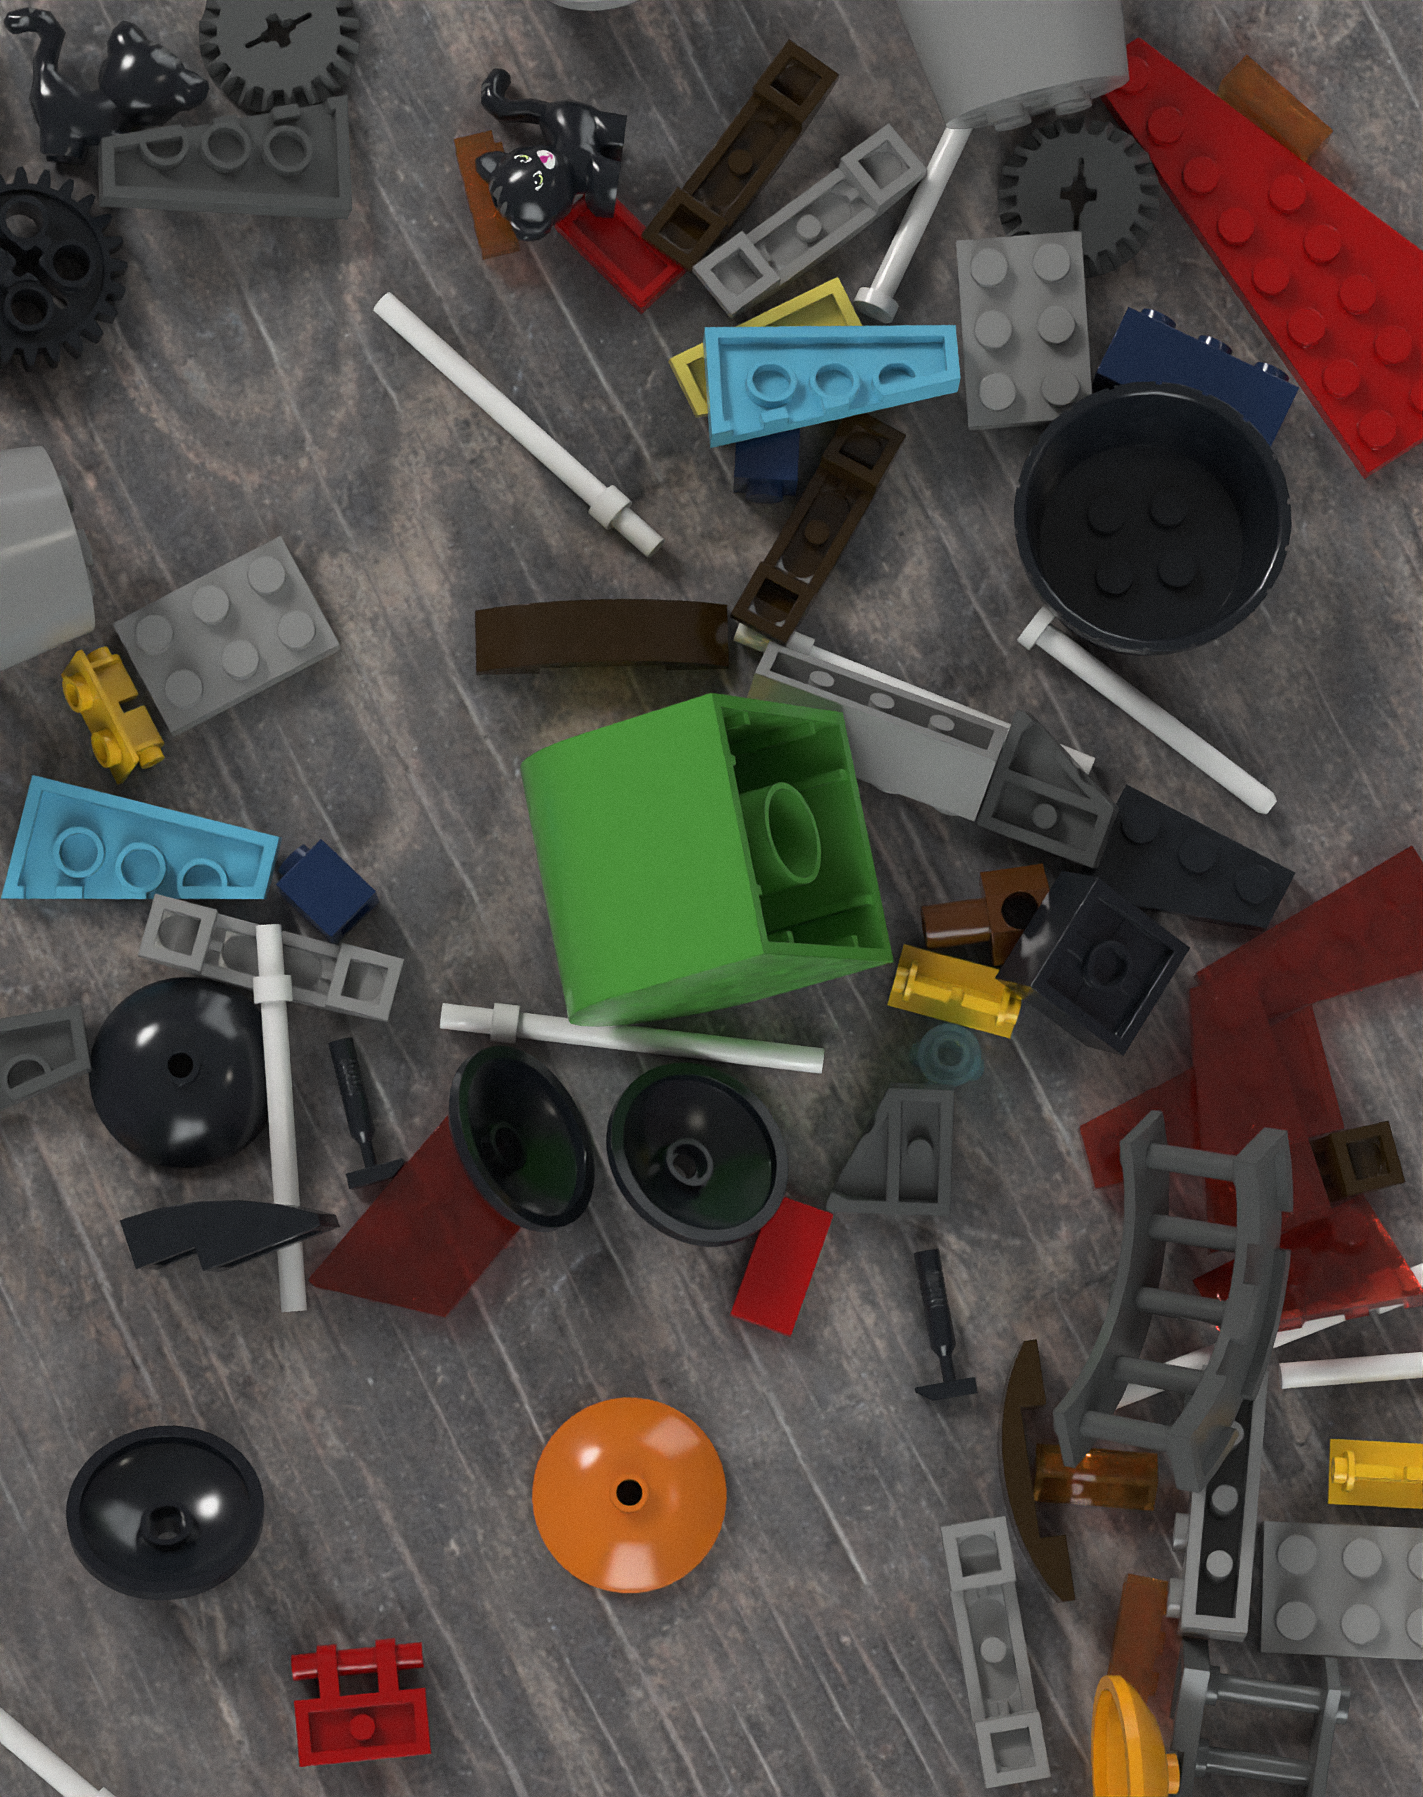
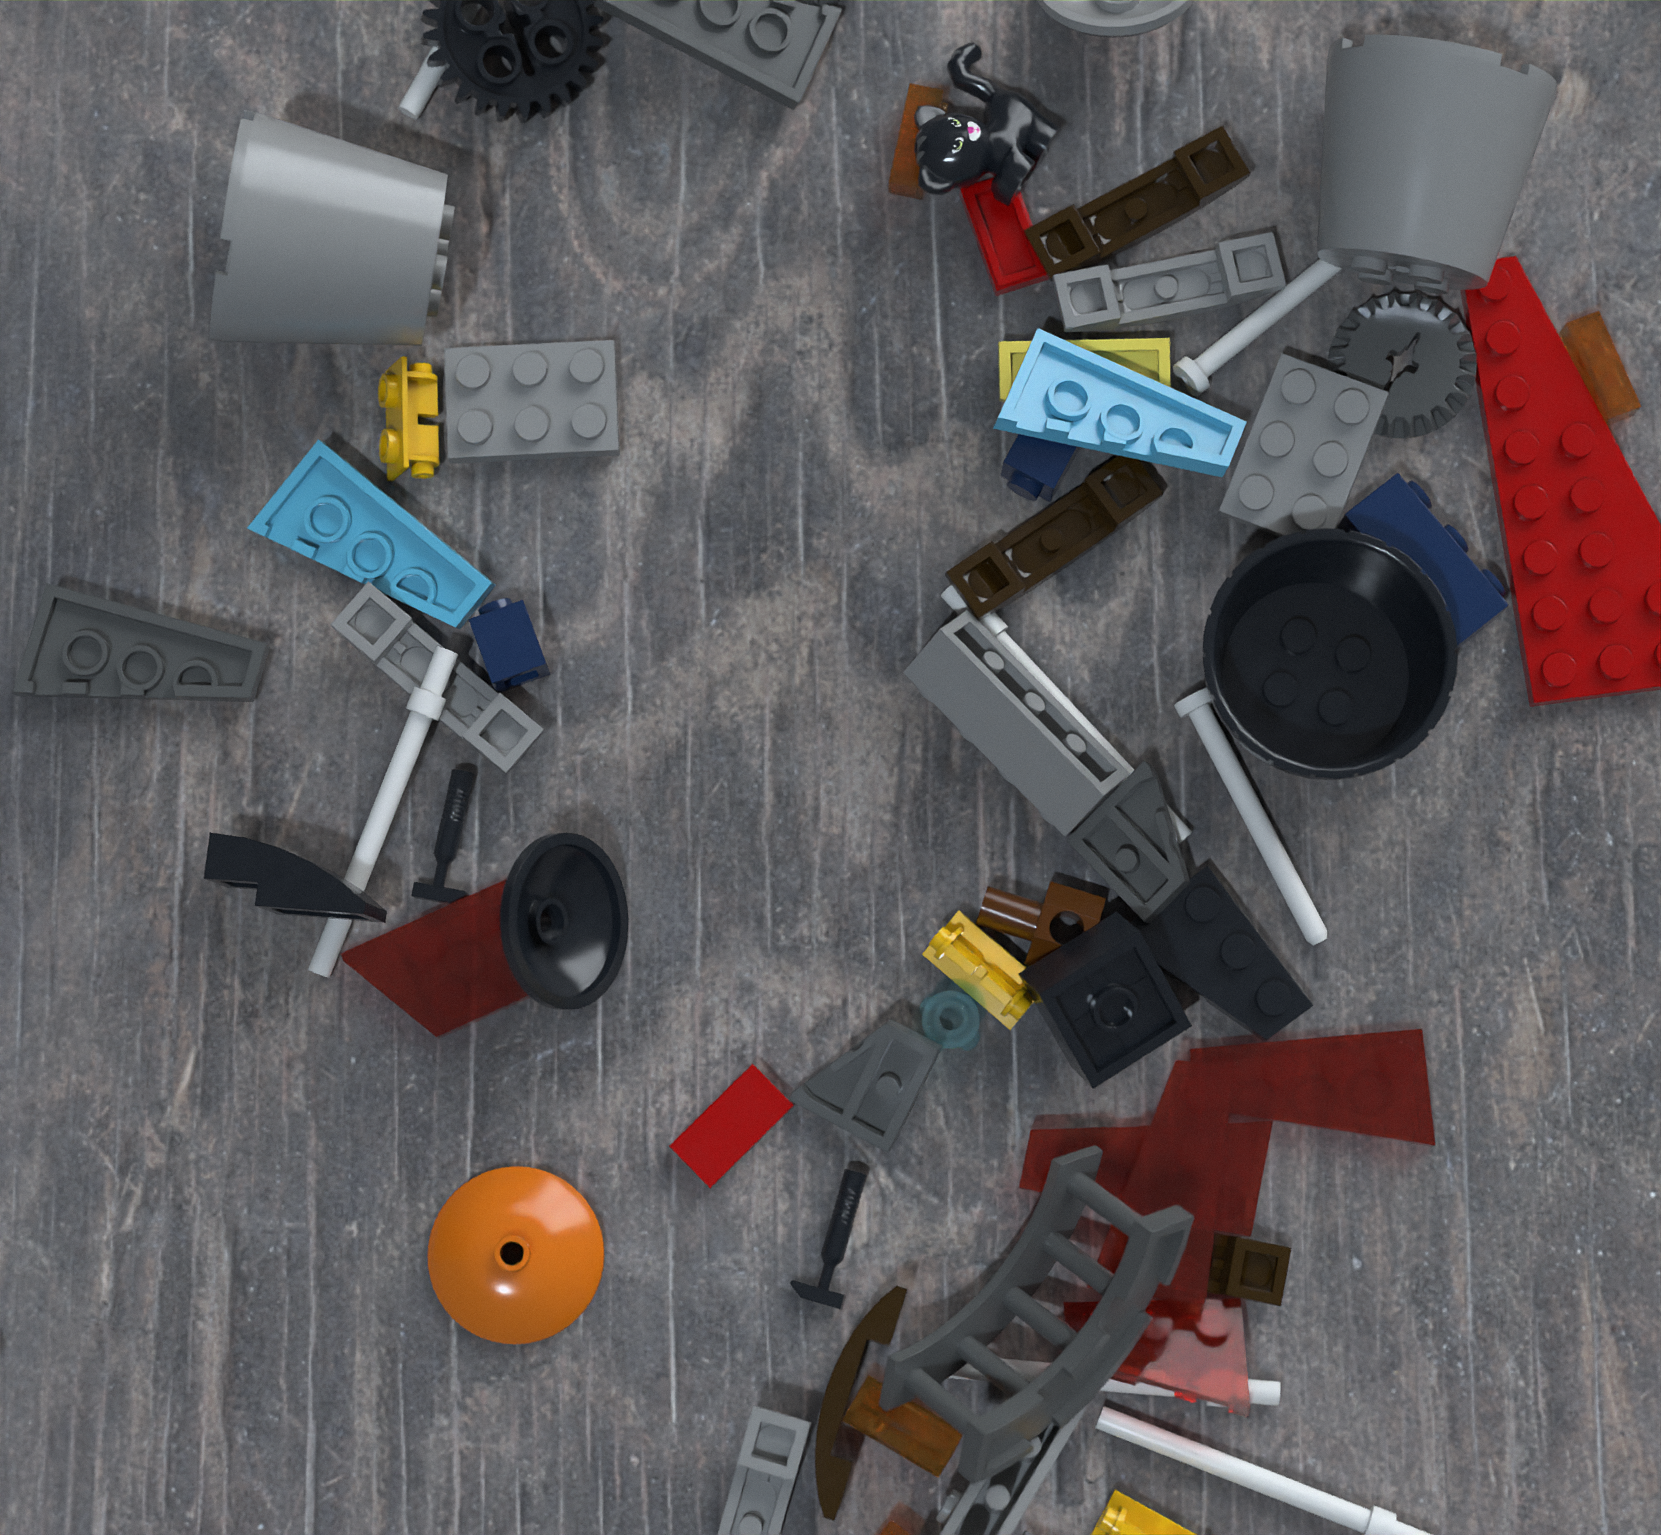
camera: 30 degrees right, 0 degrees up
(157, 1485) = (134, 1061): black dish -> none
(192, 1117) = (332, 777): black dish -> none
(361, 1725) = (207, 1338): red plate -> none
(508, 1023) = (605, 822): white bar -> none
(601, 635) = (836, 542): dark brown slope -> none
(606, 504) = (891, 438): white bar -> none
(703, 859) = (821, 761): bright green brick -> none
(716, 1136) = (730, 999): black dish -> none

